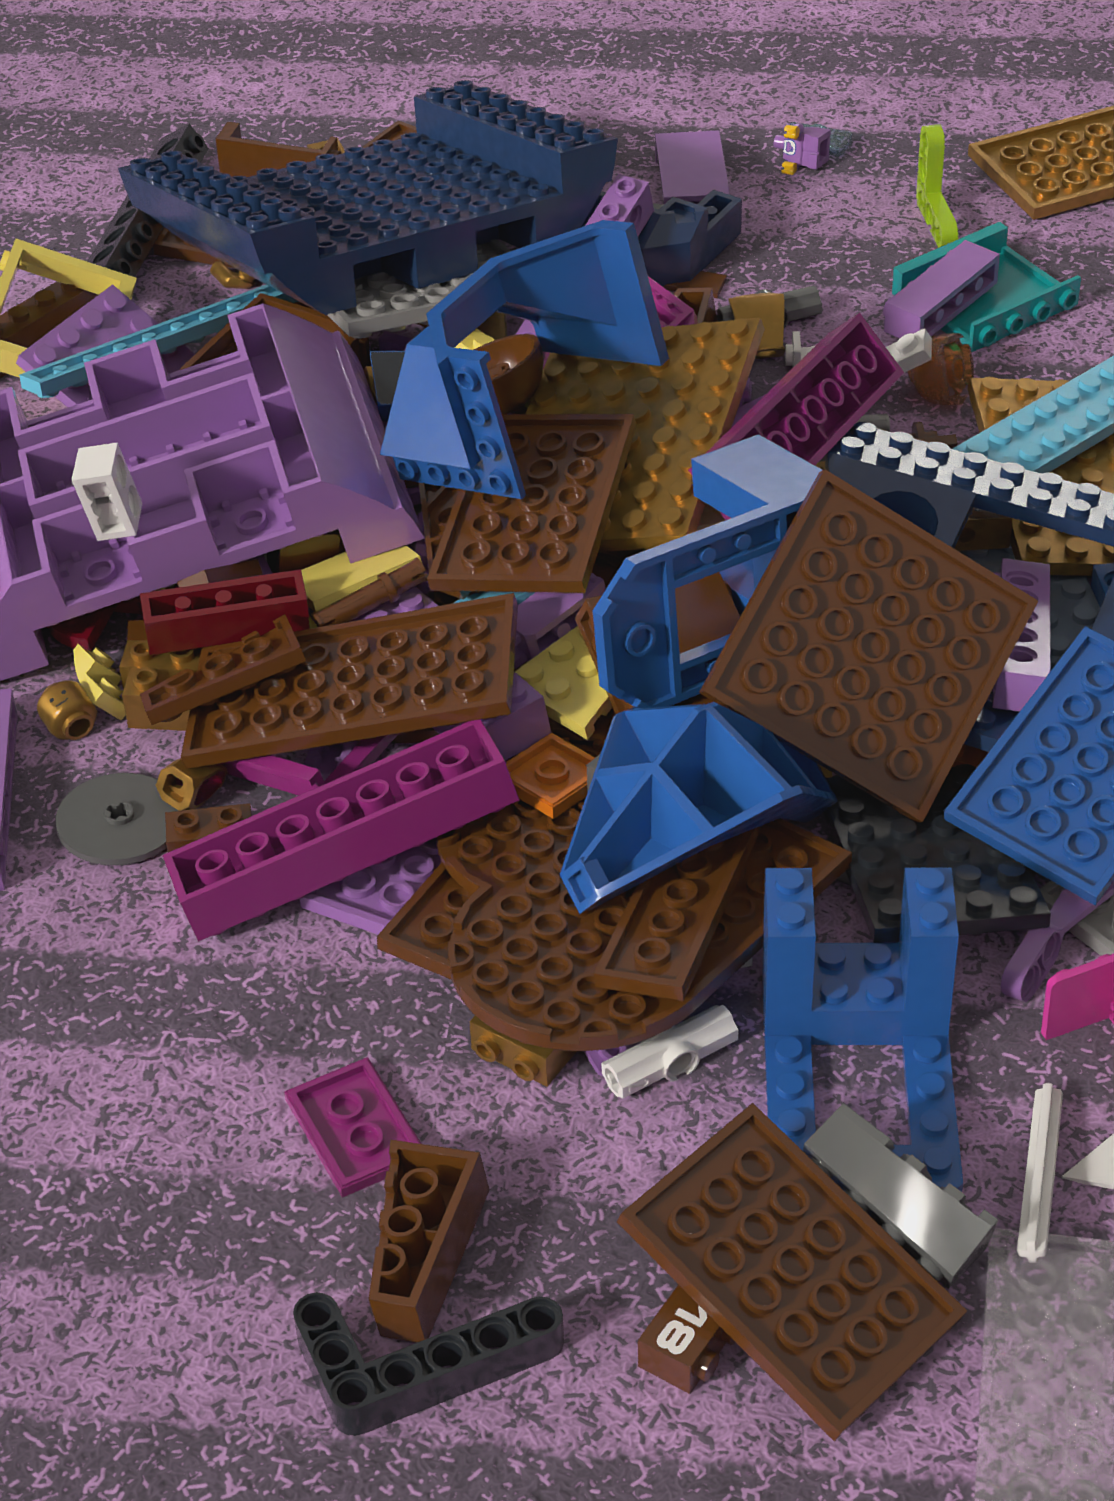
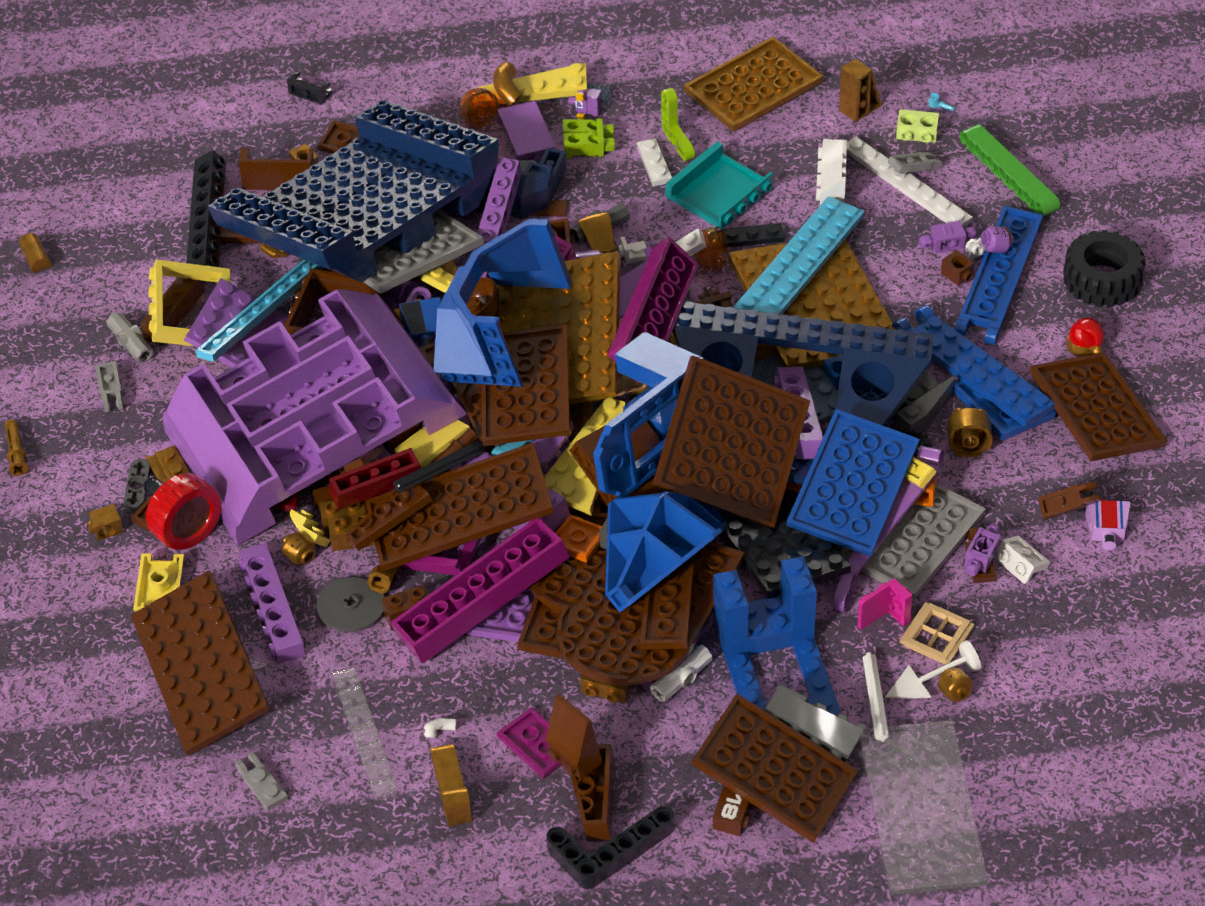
camera: 15 degrees left, 5 degrees up
(39, 1056) = (364, 733): none -> clear beam
(107, 491) = (301, 426): white brick -> none
(149, 1198) = (451, 785): none -> pearl gold beam
(186, 1054) = (439, 724): none -> white arm
(337, 609) = (438, 466): none -> black axle
(376, 78) = (308, 90): none -> black hinge
(395, 1128) = (572, 739): none -> reddish brown slope
(632, 123) = (477, 104): none -> clear orange cylinder
(677, 99) = (504, 85): none -> pearl gold cylinder
(731, 117) = (549, 84): none -> light yellow wing
(787, 193) = (587, 137): none -> lime hips
(887, 240) = (654, 162): none -> white plate
(942, 291) = (696, 195): medium lavender brick -> none
(1023, 364) = (754, 235): none -> black plate

